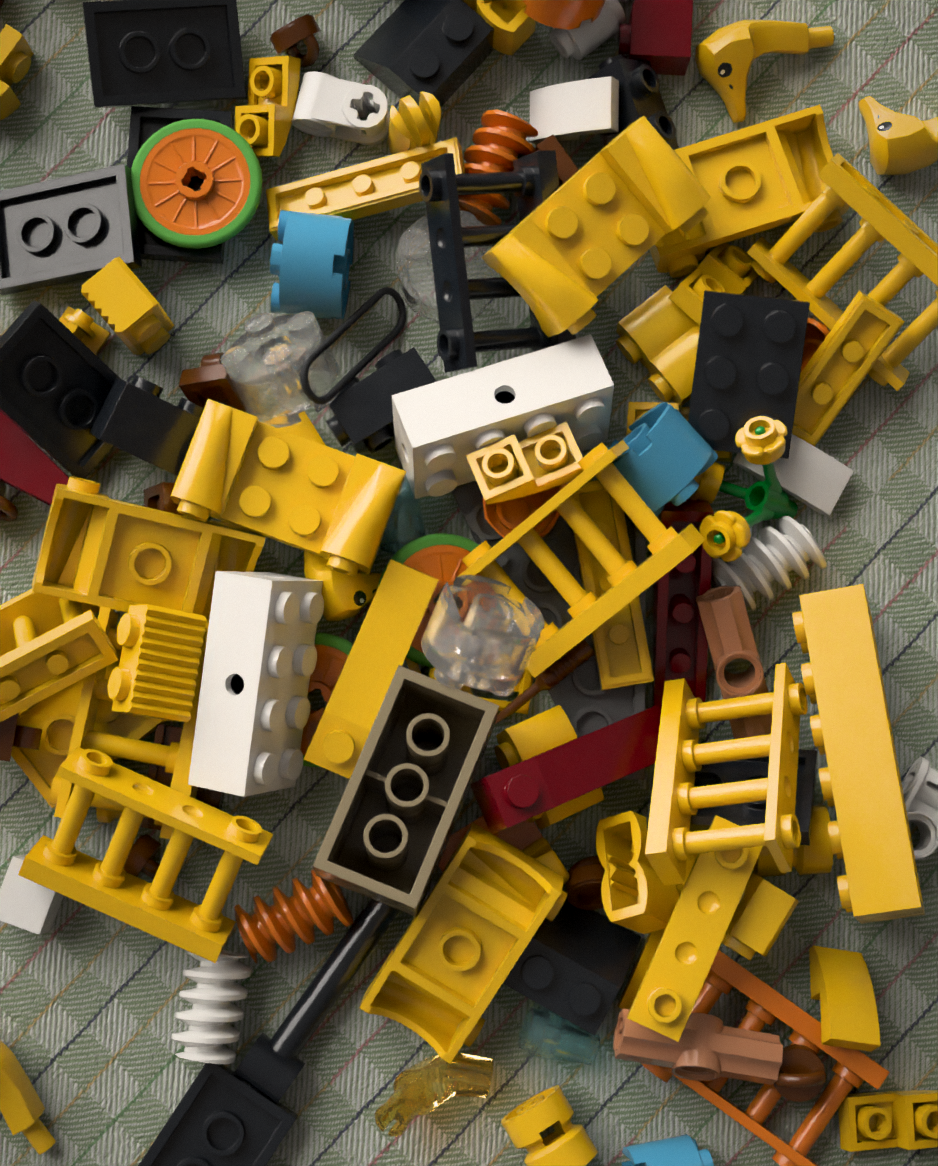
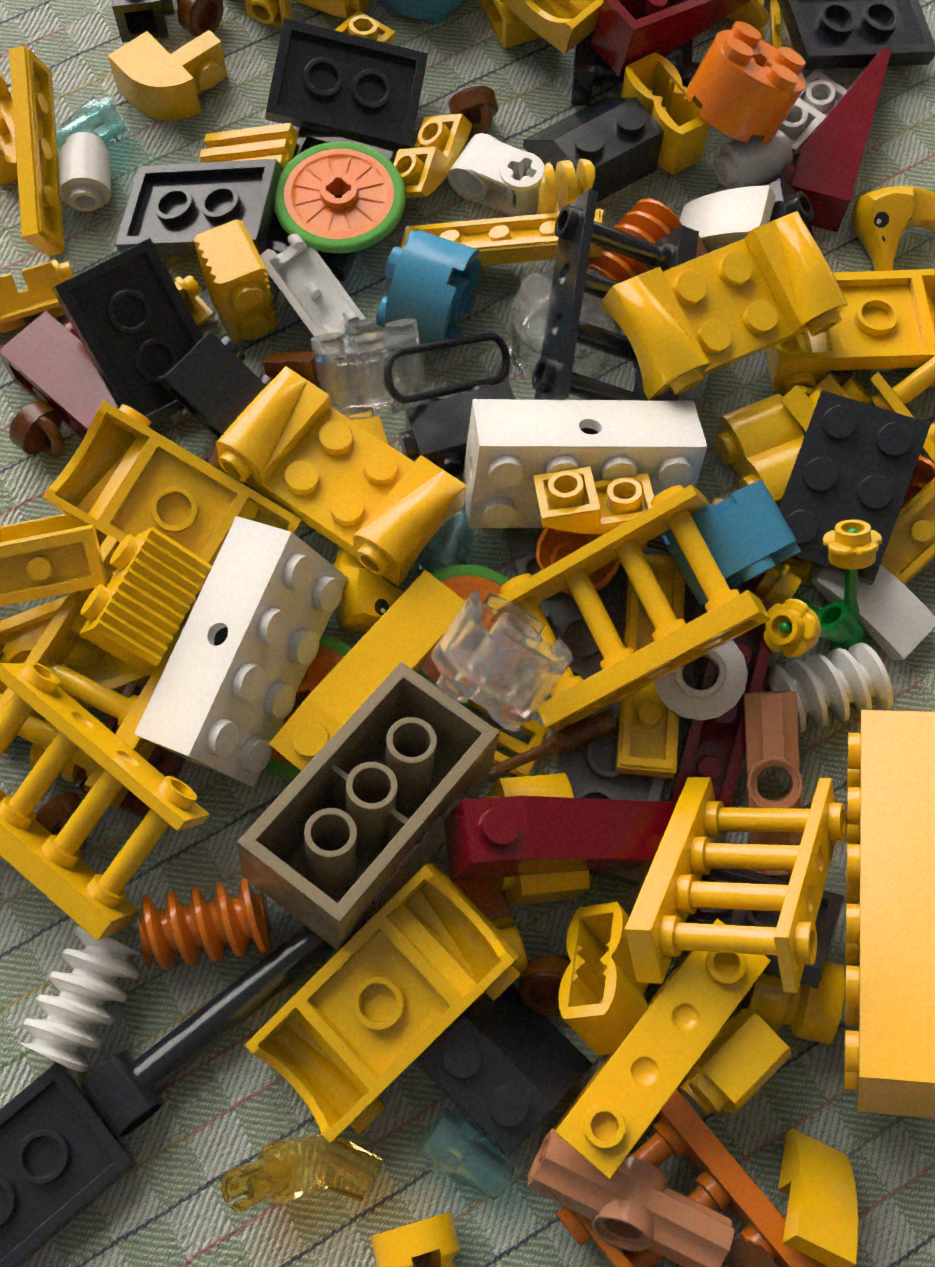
camera: 15 degrees right, 15 degrees down
(84, 133) = (251, 144): none -> yellow tile
(202, 294) = (311, 288): none -> white hinge
(674, 609) = (712, 701): none -> white piece

